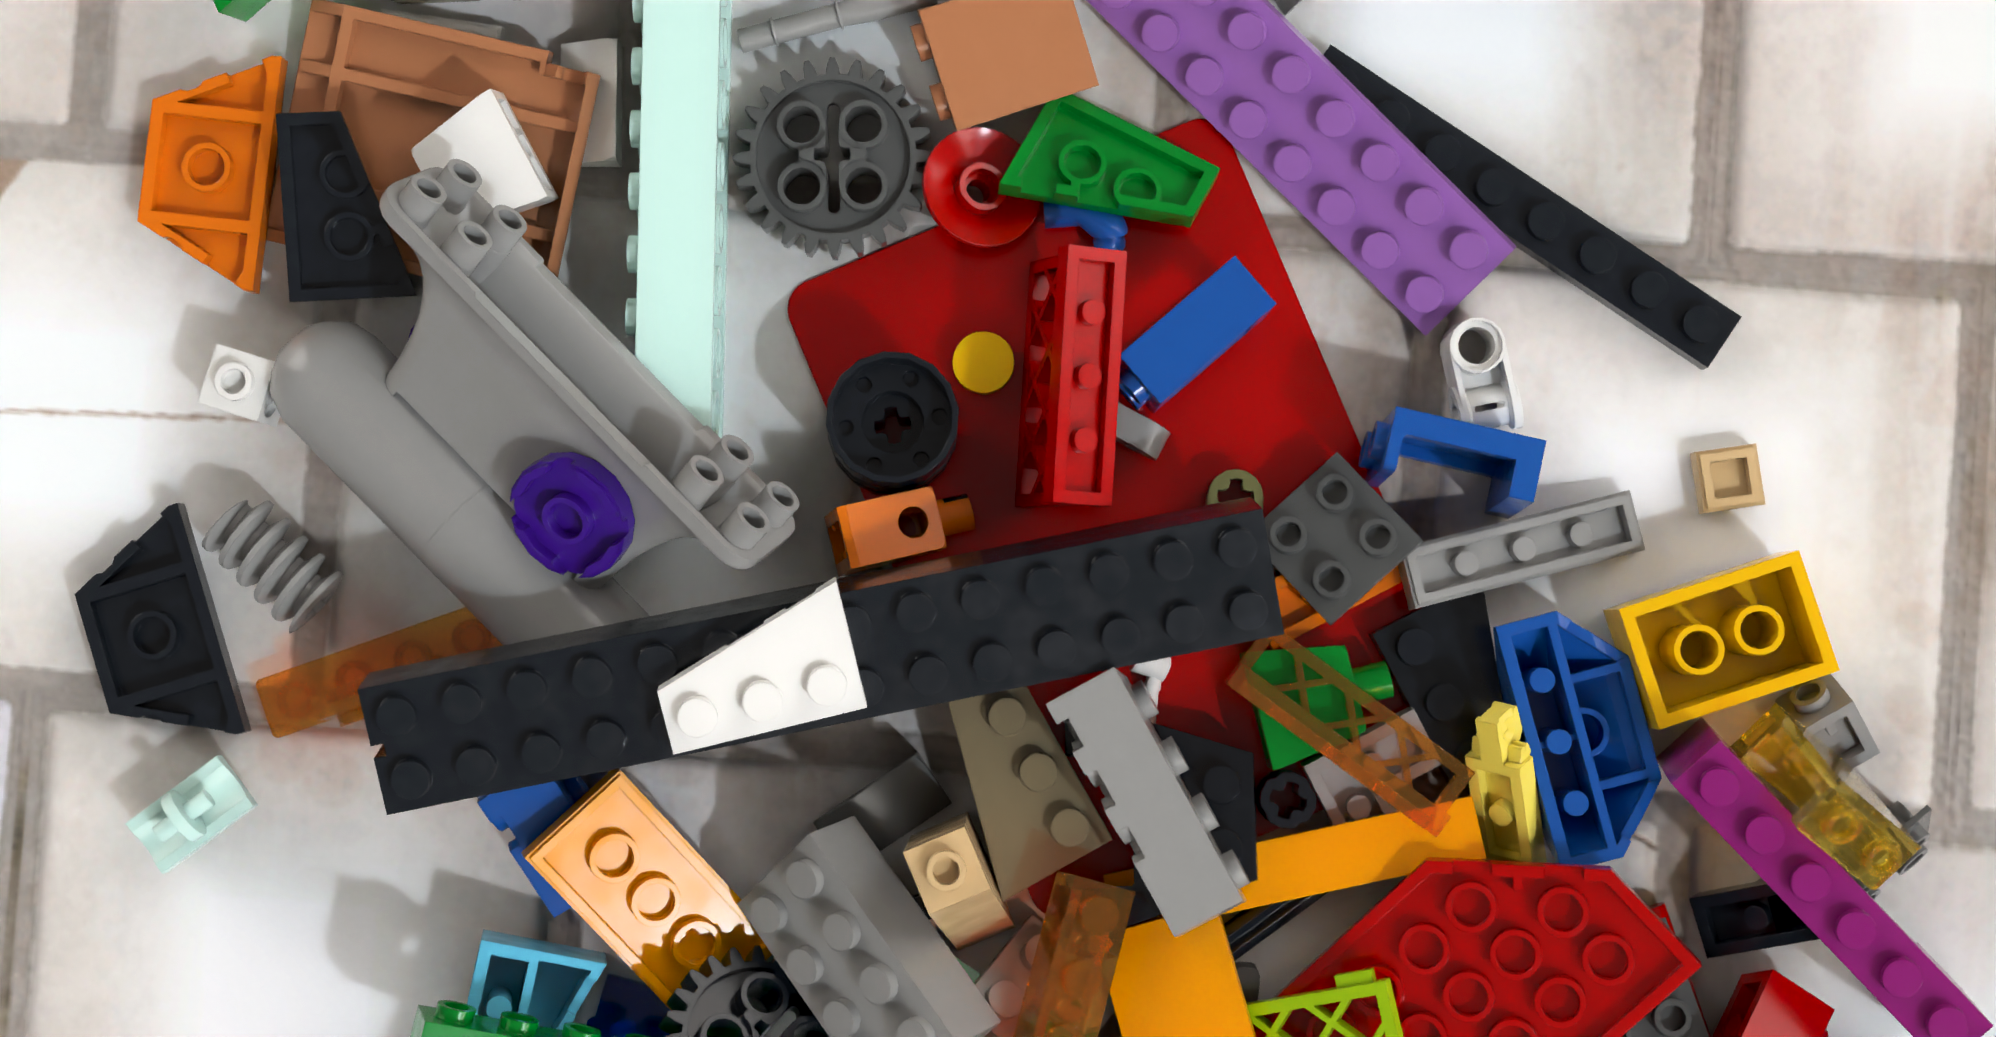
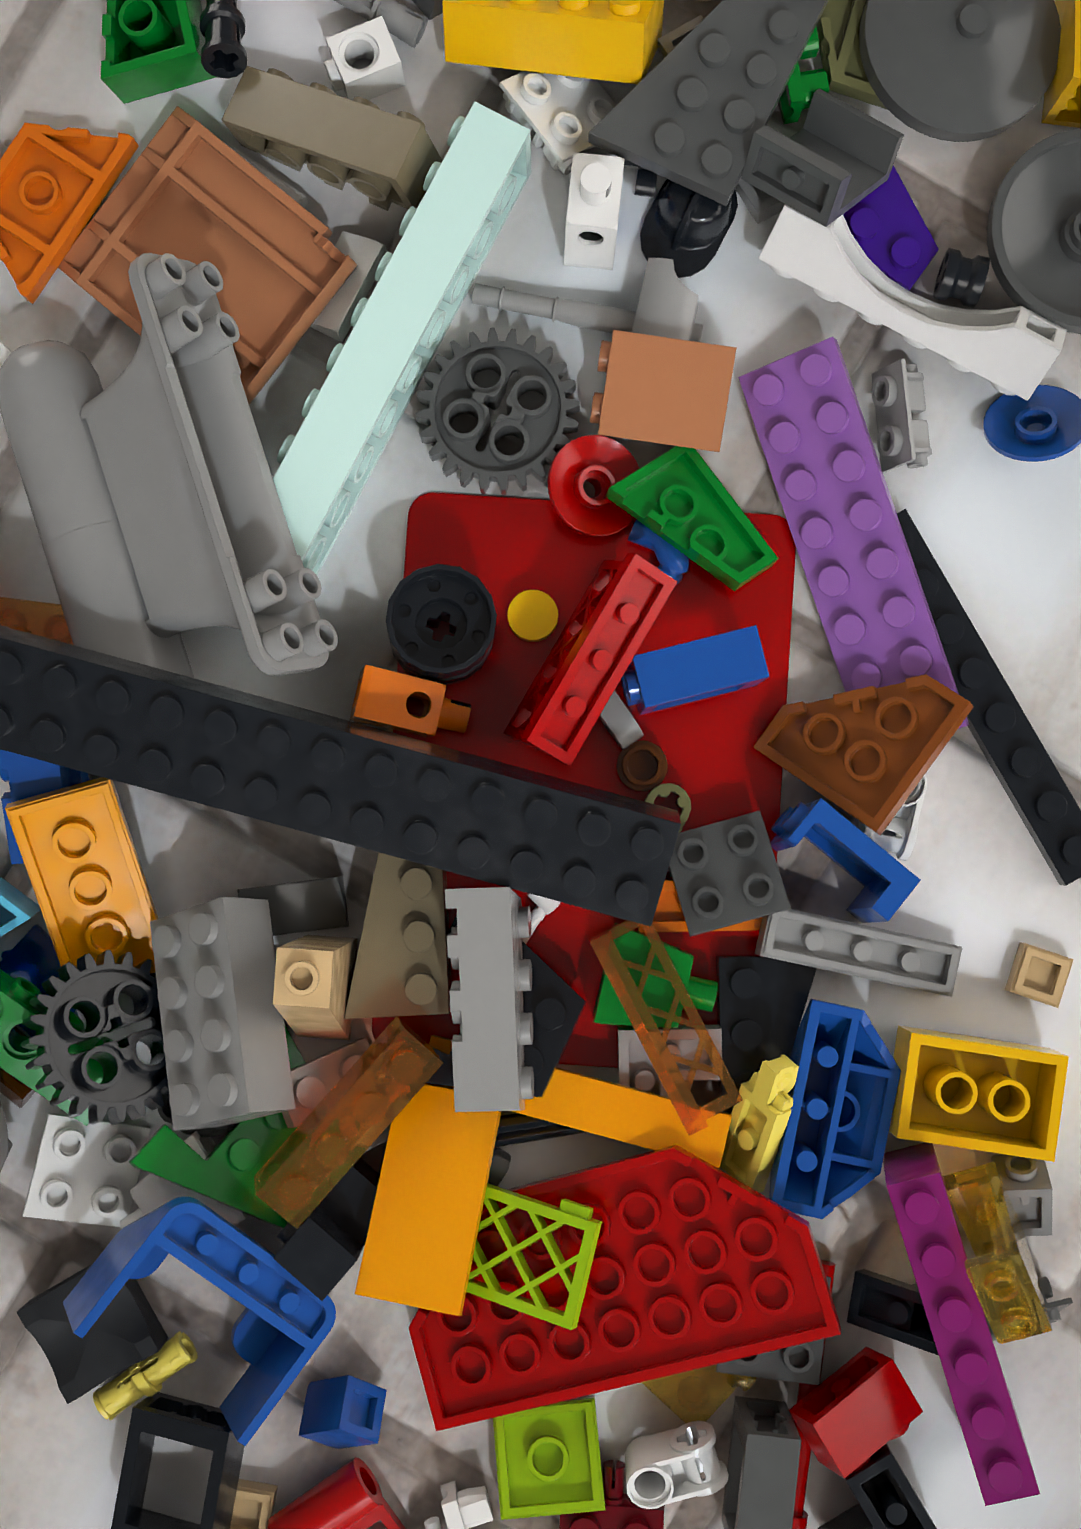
camera: 30 degrees right, 0 degrees up
(332, 215) = (96, 284): black wing -> none
(496, 146) = (250, 280): white torso -> none
(572, 514) = (164, 570): dark purple tile -> none
(770, 679) = (246, 766): white wing -> none
(1185, 467) = (642, 766): none -> reddish brown plate
(1292, 815) = (593, 1062): black bush -> none
(1415, 323) = (866, 743): none -> dark orange plate

